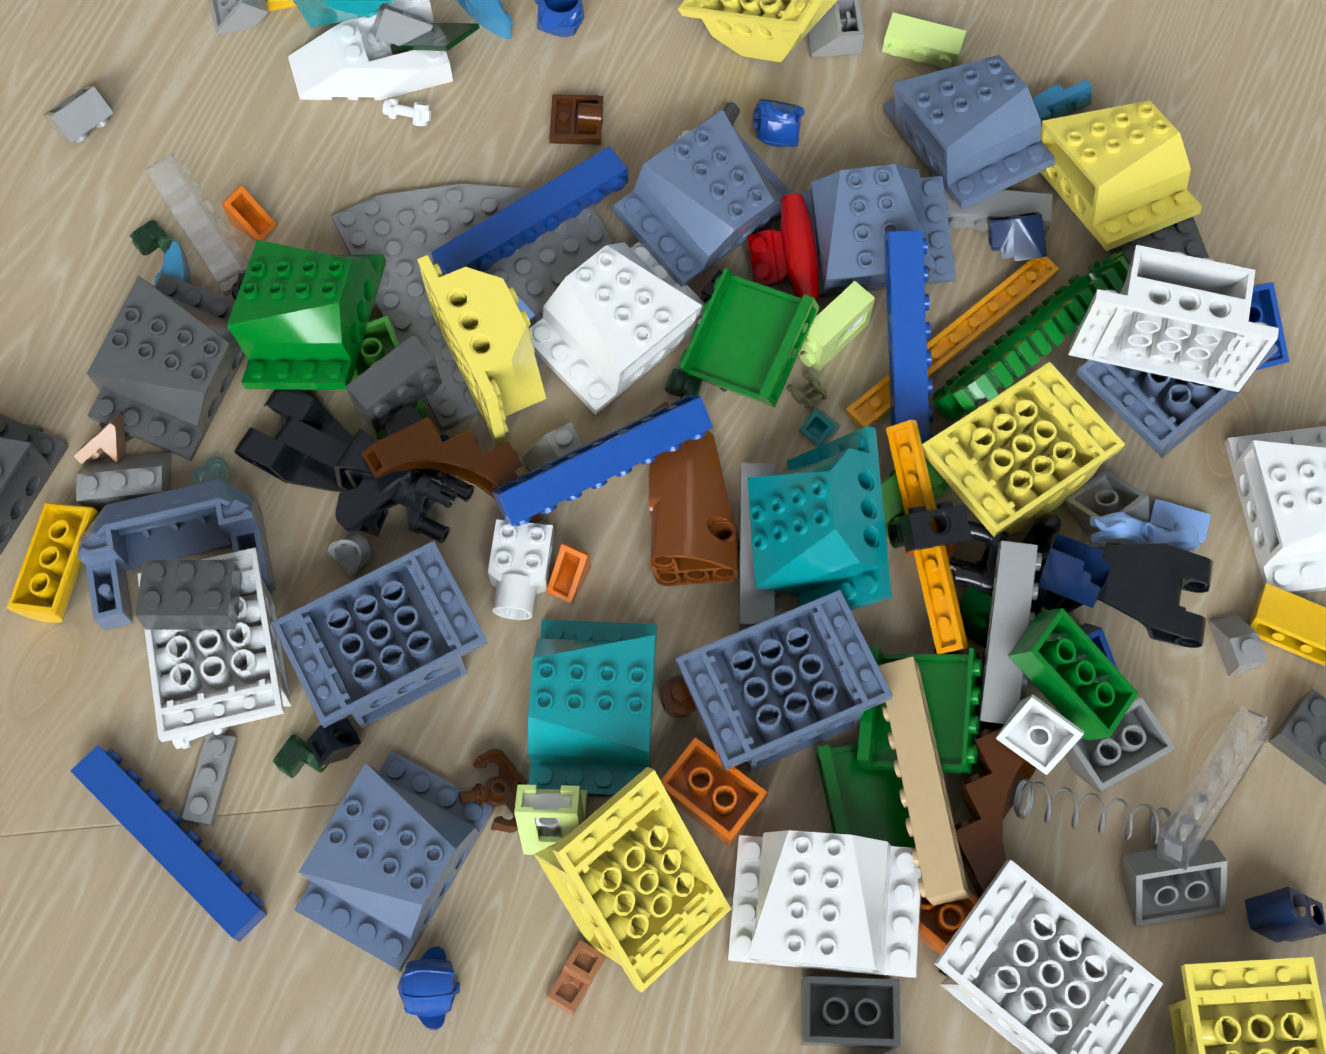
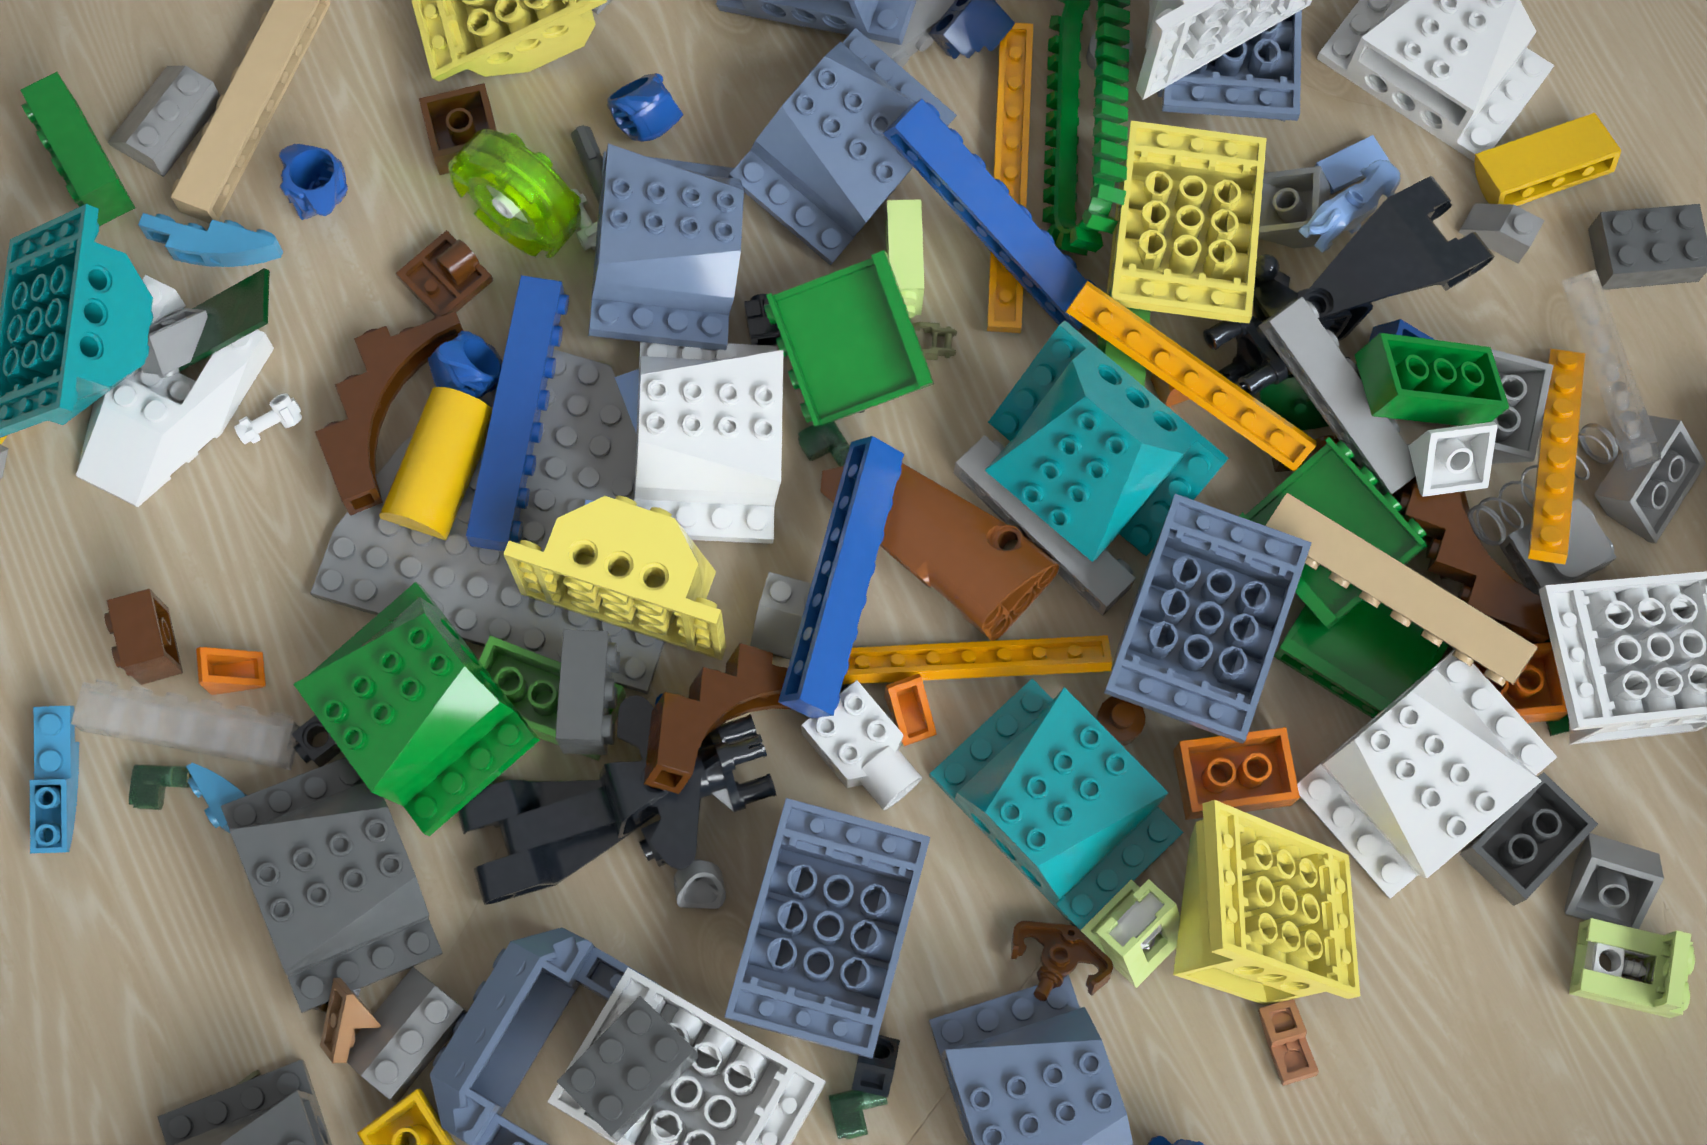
camera: 50 degrees left, 5 degrees up
(107, 196) = (55, 780): none -> dark azure slope
(214, 469) = (480, 947): clear light blue tile -> none
(224, 158) = (143, 637): none -> reddish brown brick
(460, 206) = (438, 463): none -> yellow brick
(496, 136) = (366, 397): none -> reddish brown arch
(531, 168) = (466, 365): none -> blue piece
(630, 577) = (979, 659): none -> light orange plate
(653, 99) = (516, 192): none -> clear neon green piece
(667, 50) = (454, 119): none -> reddish brown brick
(787, 252) = (791, 227): red plate -> none
(819, 427) = (978, 365): teal slope -> none
(915, 532) = (1186, 377): black brick -> none
(1066, 863) = (1587, 552): none -> light grey brick
(1075, 571) = (1353, 291): dark blue piece -> none
(1112, 802) = (1557, 459): none -> light orange plate

